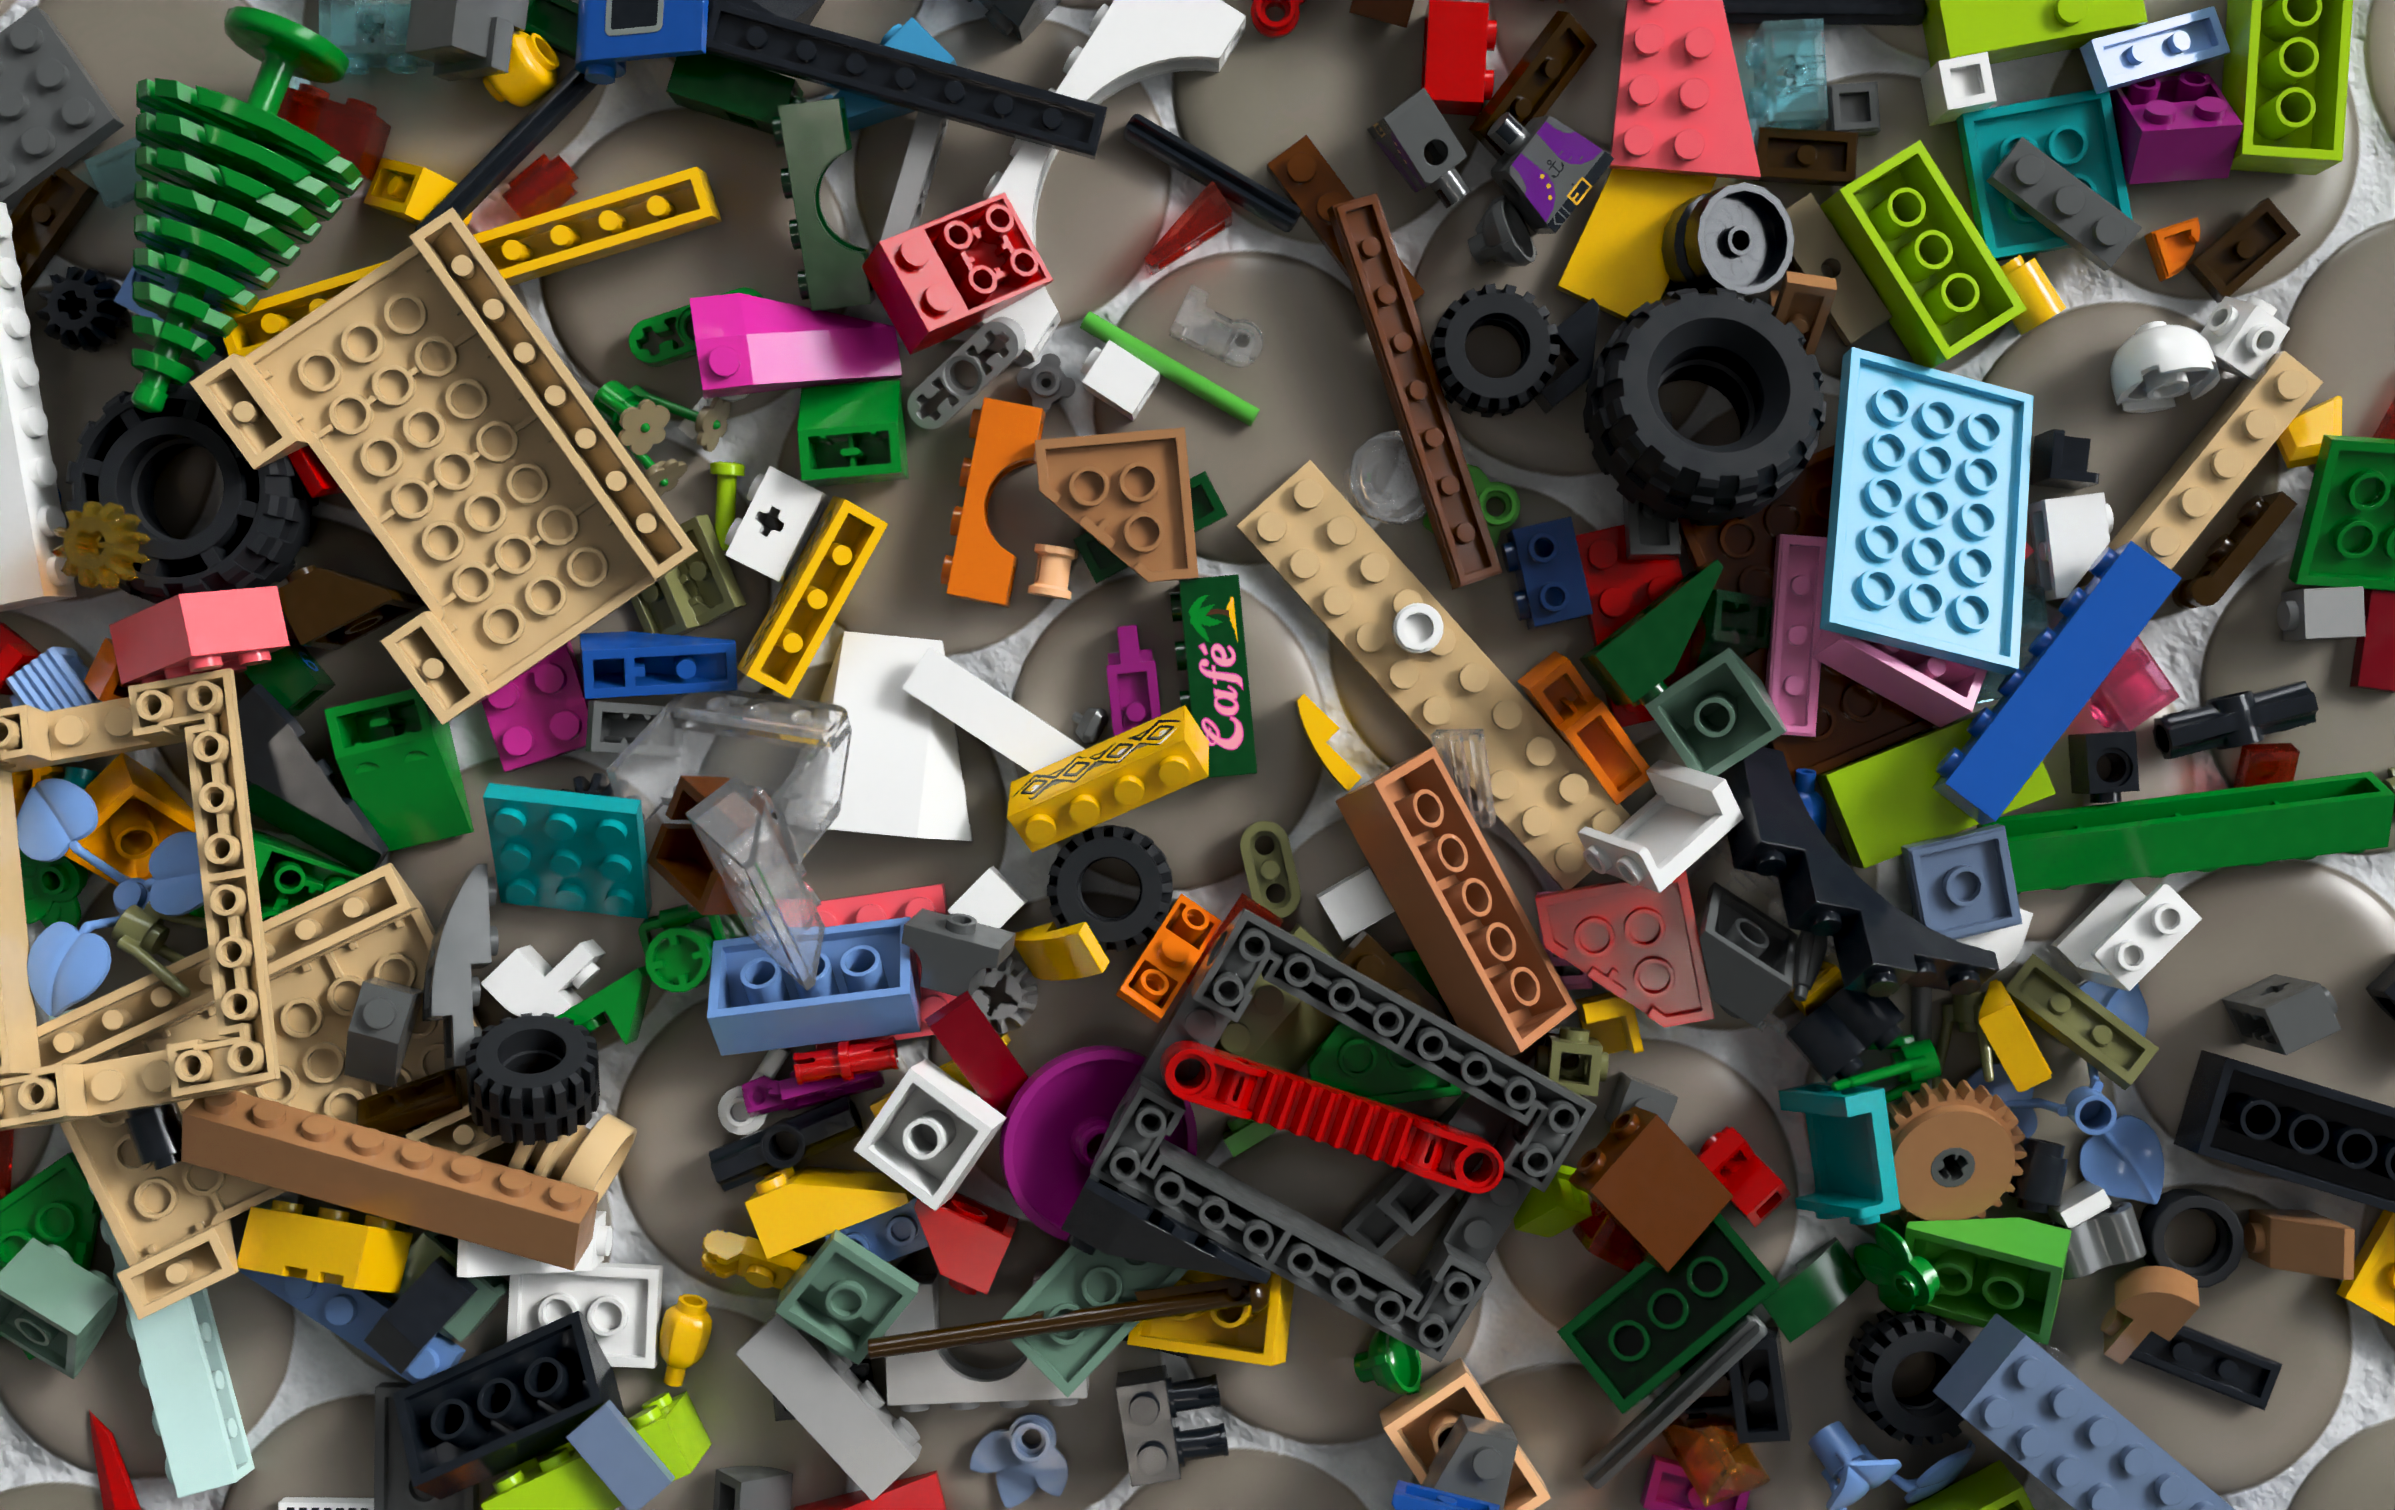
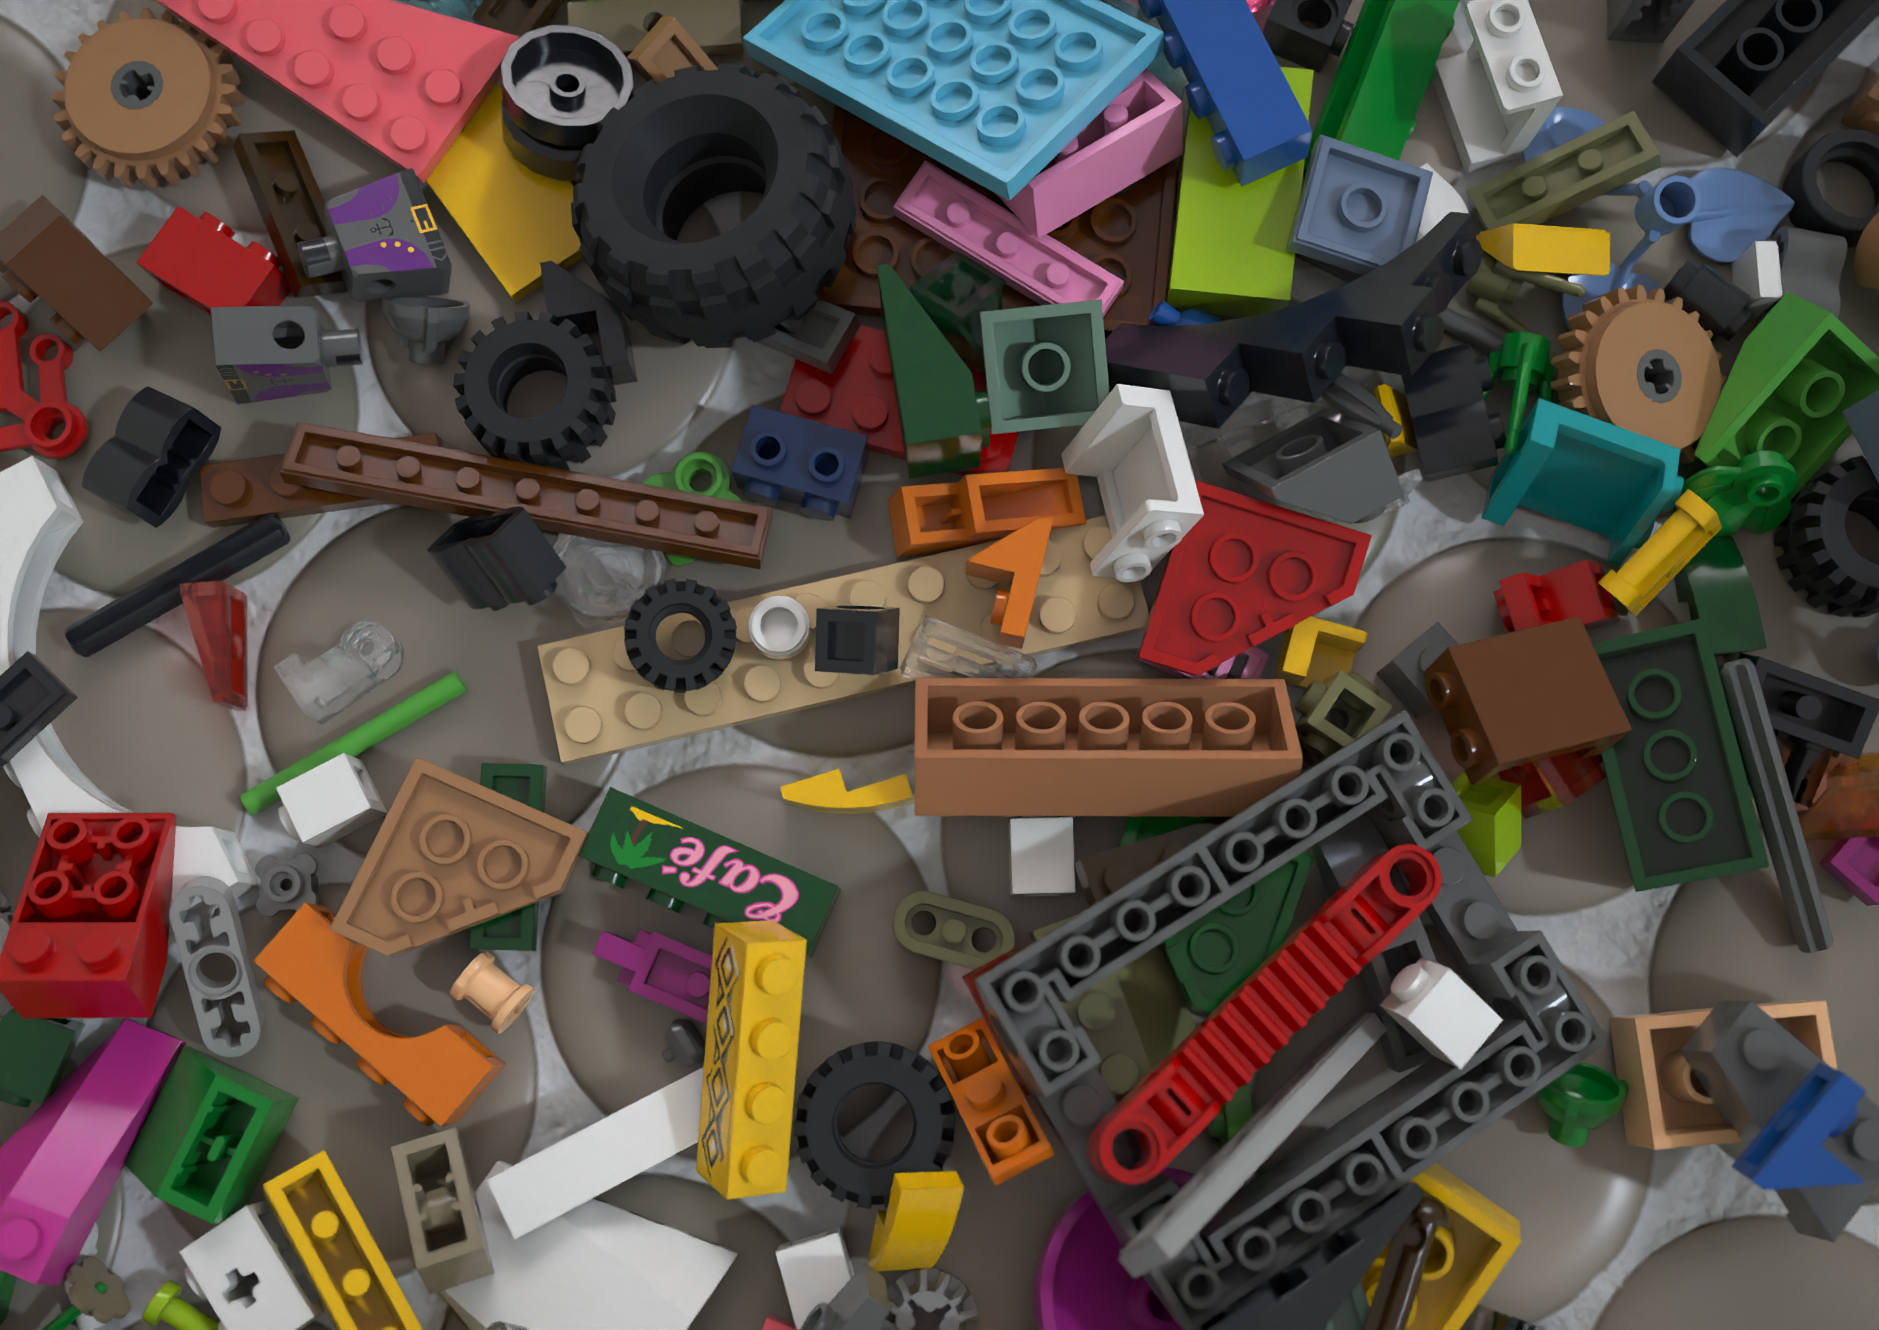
camera: 65 degrees left, 10 degrees down
(893, 627) = (442, 1211): none -> dark tan brick
(1239, 1153) = (1250, 1146): none -> light grey tile
(1293, 98) = (151, 456): none -> black brick
(1355, 400) = (498, 559): none -> black brick
(1379, 593) = (685, 598): none -> black tyre
(1397, 1235) = (1440, 1011): none -> white brick
(1438, 691) = (857, 639): none -> black brick
(1557, 777) = (1017, 563): none -> orange slope
(1815, 1234) = (1663, 554): none -> yellow plate

